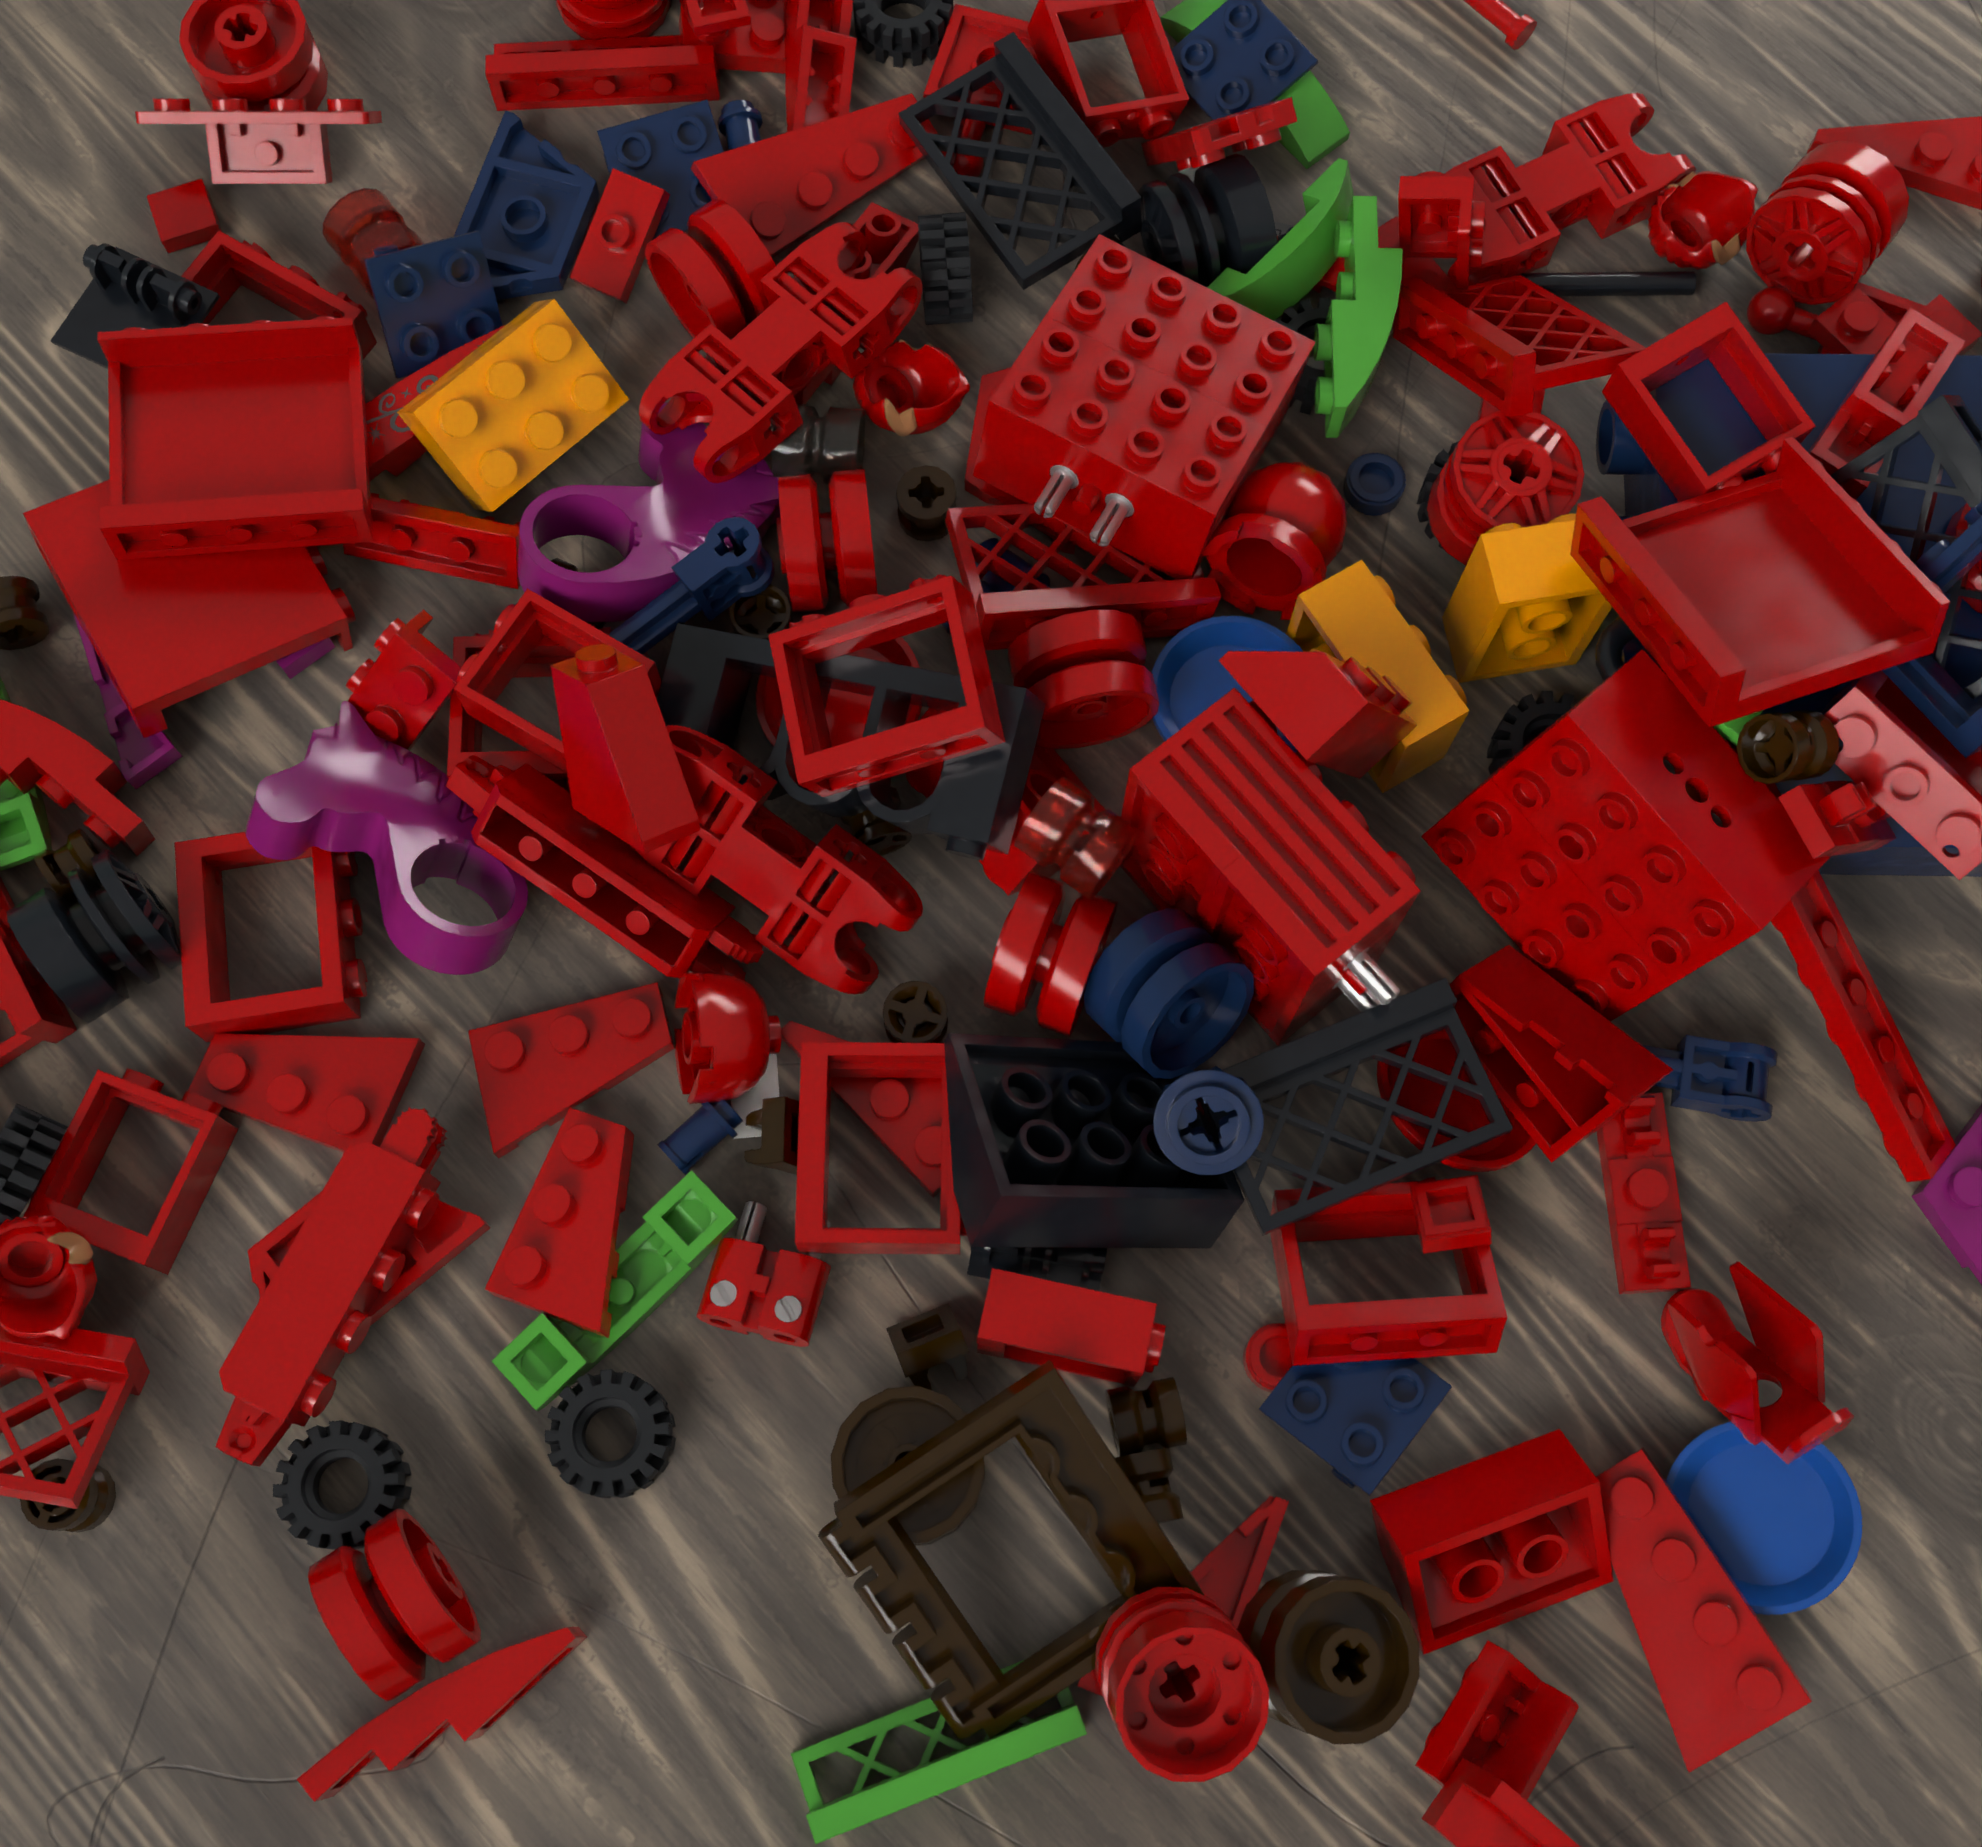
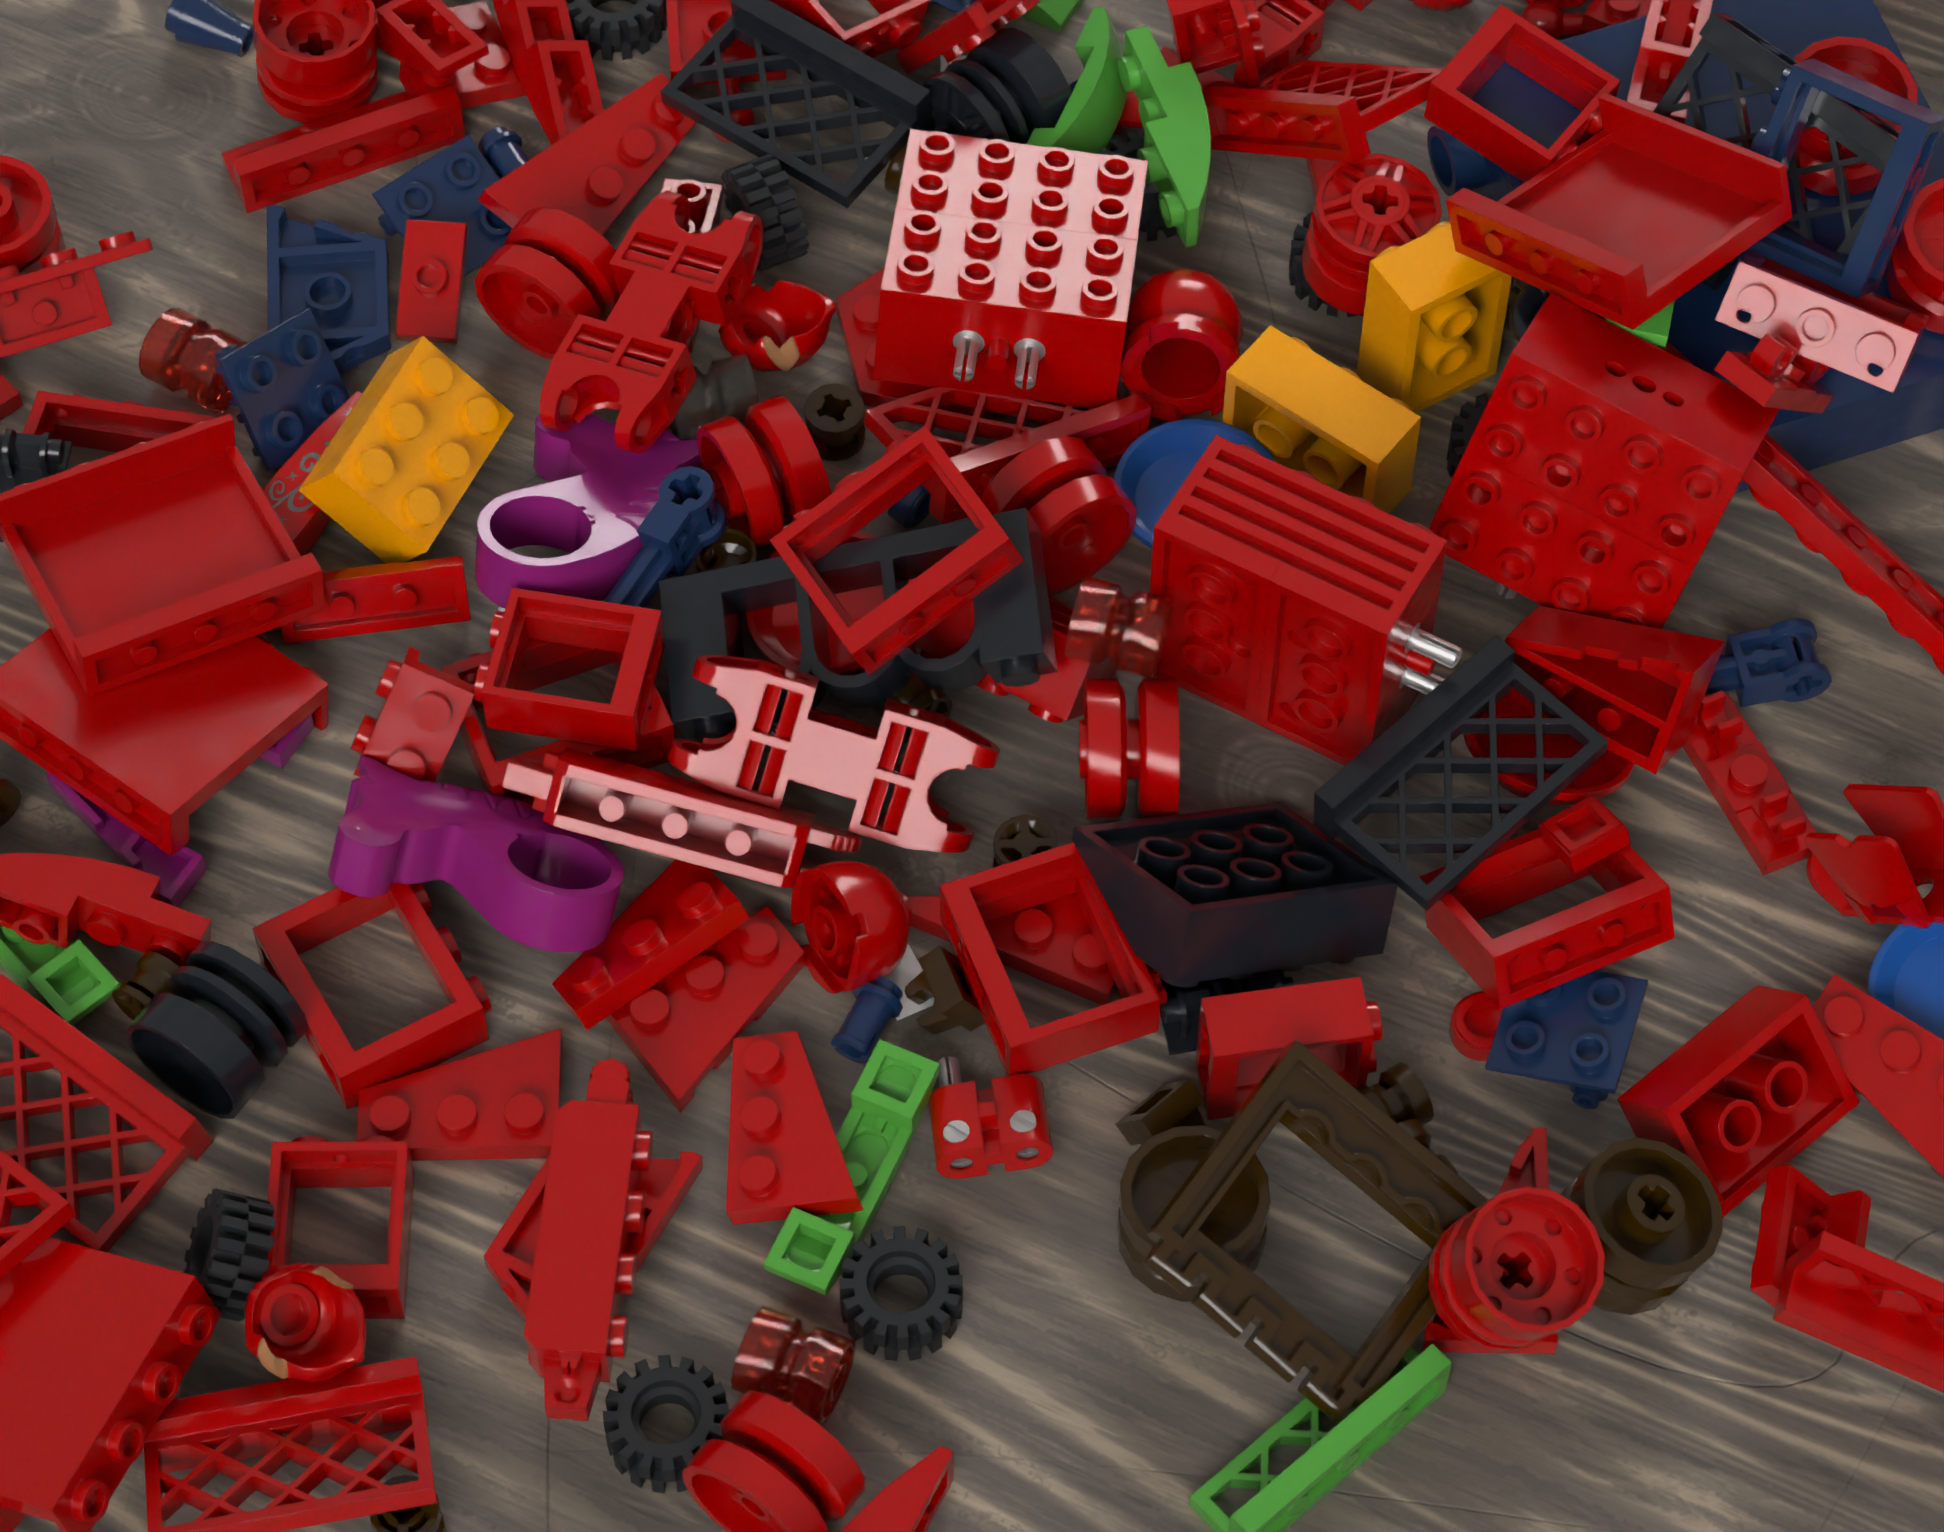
camera: 20 degrees left, 15 degrees down
(470, 1470) = (794, 1364): none -> clear red wheel
(535, 981) = (652, 938): none -> red wing
(620, 750) = (673, 680): red slope -> none
(1168, 992) = (1254, 740): dark blue wheel -> none
(1193, 1147) = (1369, 822): dark blue gear -> none
(1325, 706) = (1298, 426): red slope -> none
(1374, 484) = (1248, 277): dark blue tile -> none
(1616, 283) = (1397, 41): black bar -> none
(1787, 746) = (1704, 329): dark brown wheel -> none

